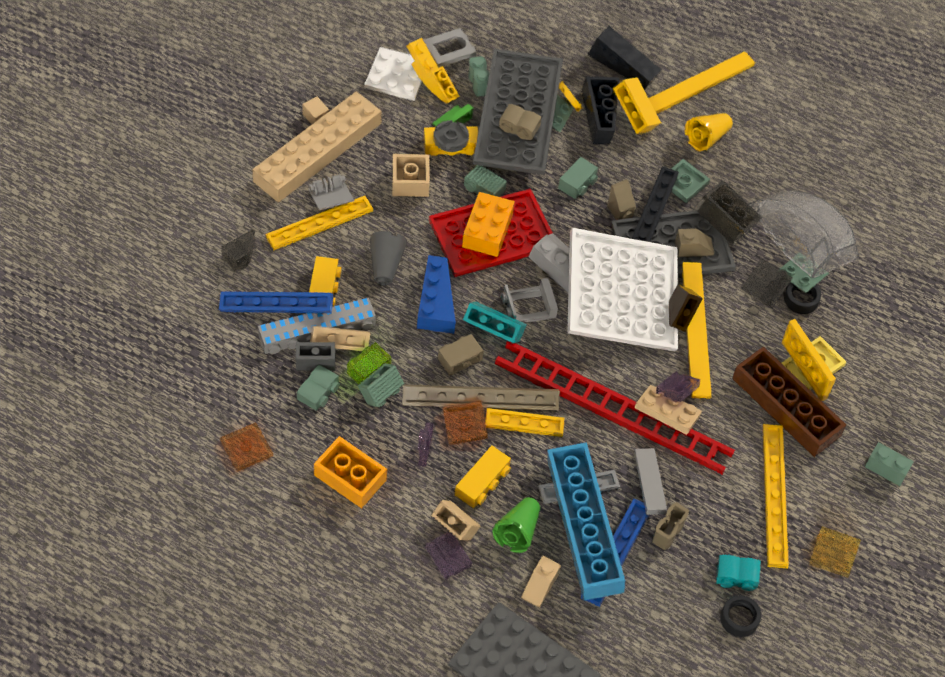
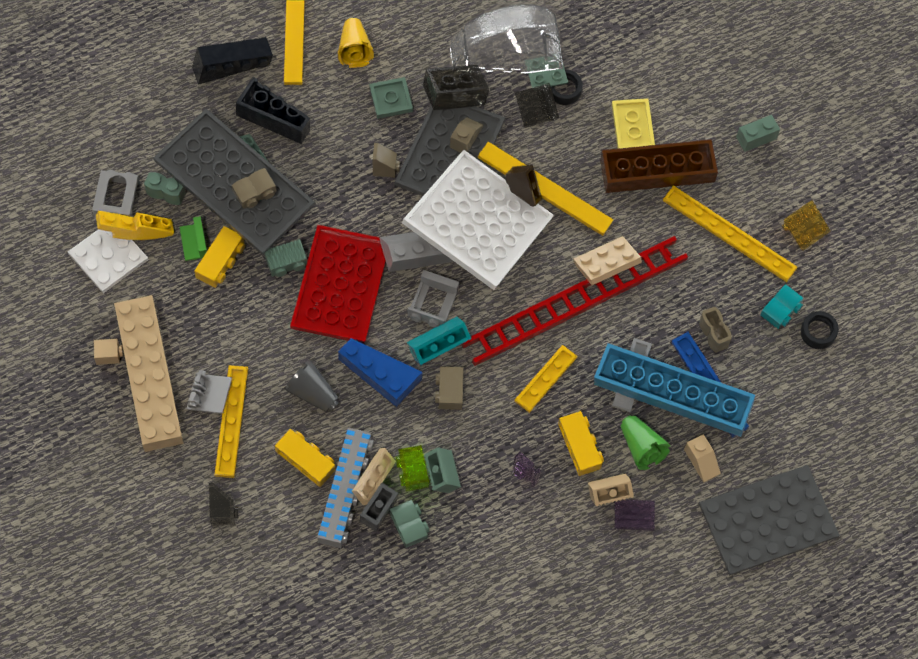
camera: 55 degrees left, 10 degrees up
(246, 447) = (428, 617): clear orange plate -> none
(276, 302) = (302, 508): blue plate -> none
(350, 472) = (512, 546): light orange brick -> none
(410, 175) = (237, 313): tan brick -> none
(451, 136) = (221, 254): dark grey tile -> none
(465, 423) = (518, 425): clear orange plate -> none
(488, 224) = (338, 282): light orange brick -> none
(489, 396) = (502, 398): dark tan plate -> none
(570, 97) = (245, 129): yellow tile -> none
(578, 178) = (332, 179): sand green brick -> none
(637, 105) = (293, 82): yellow brick -> none
(650, 481) = (664, 317): light grey tile -> none
(655, 205) = (406, 140): black tile -> none
(678, 386) = (594, 238): plate -> none
(808, 360) = (638, 126): yellow tile -> none

